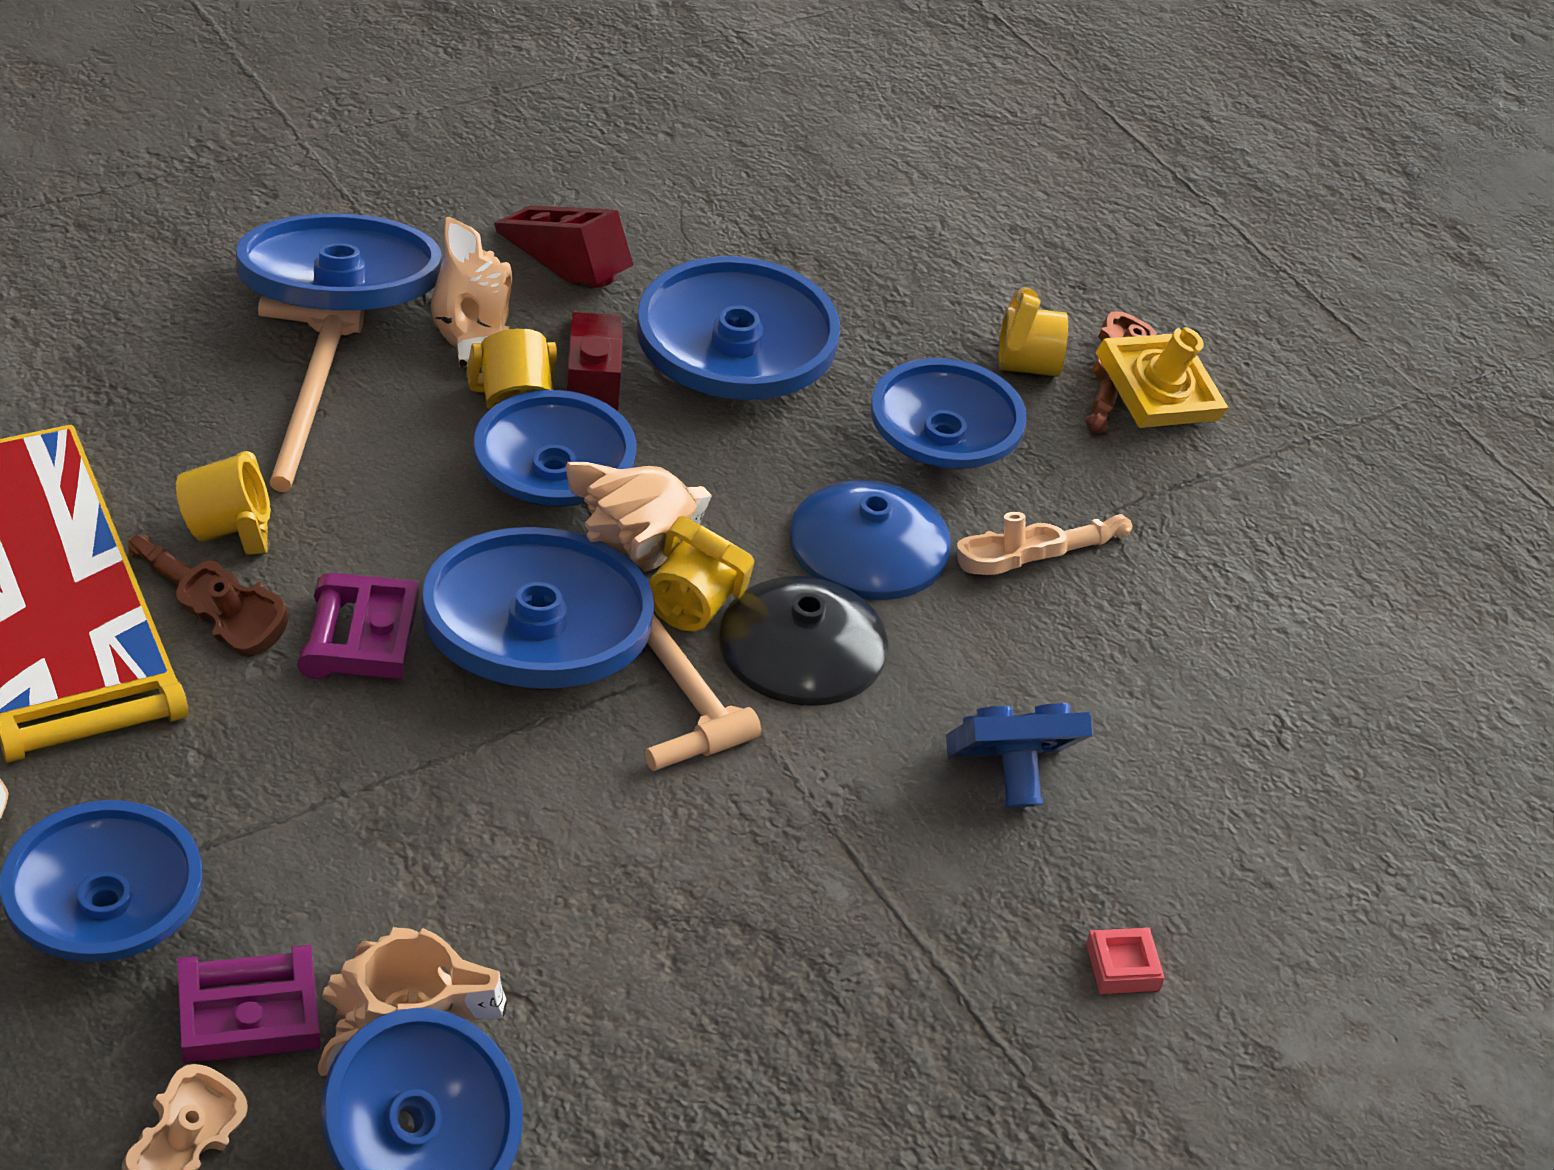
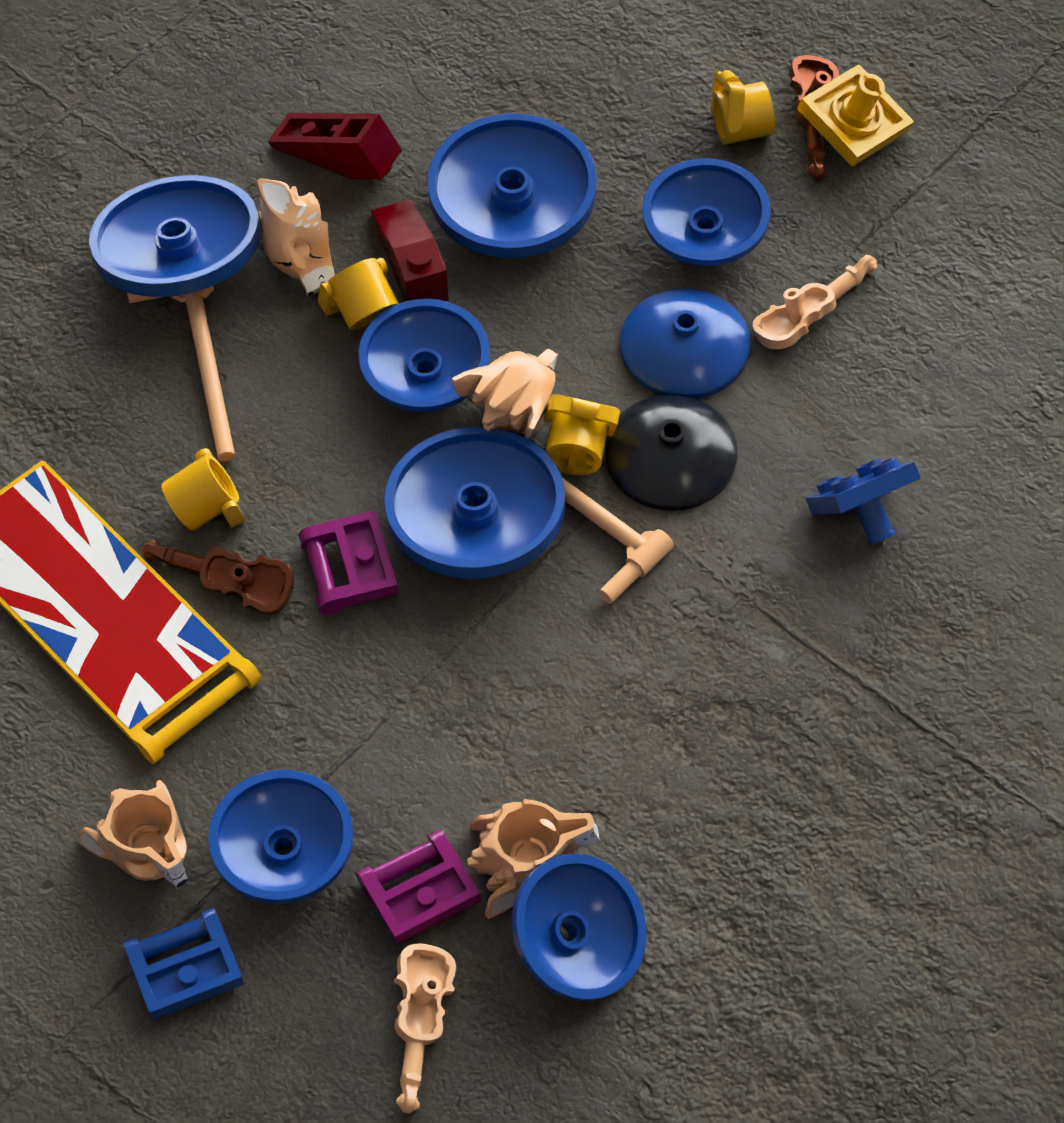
camera: 10 degrees left, 15 degrees up
(1124, 961) = (993, 637): coral tile -> none

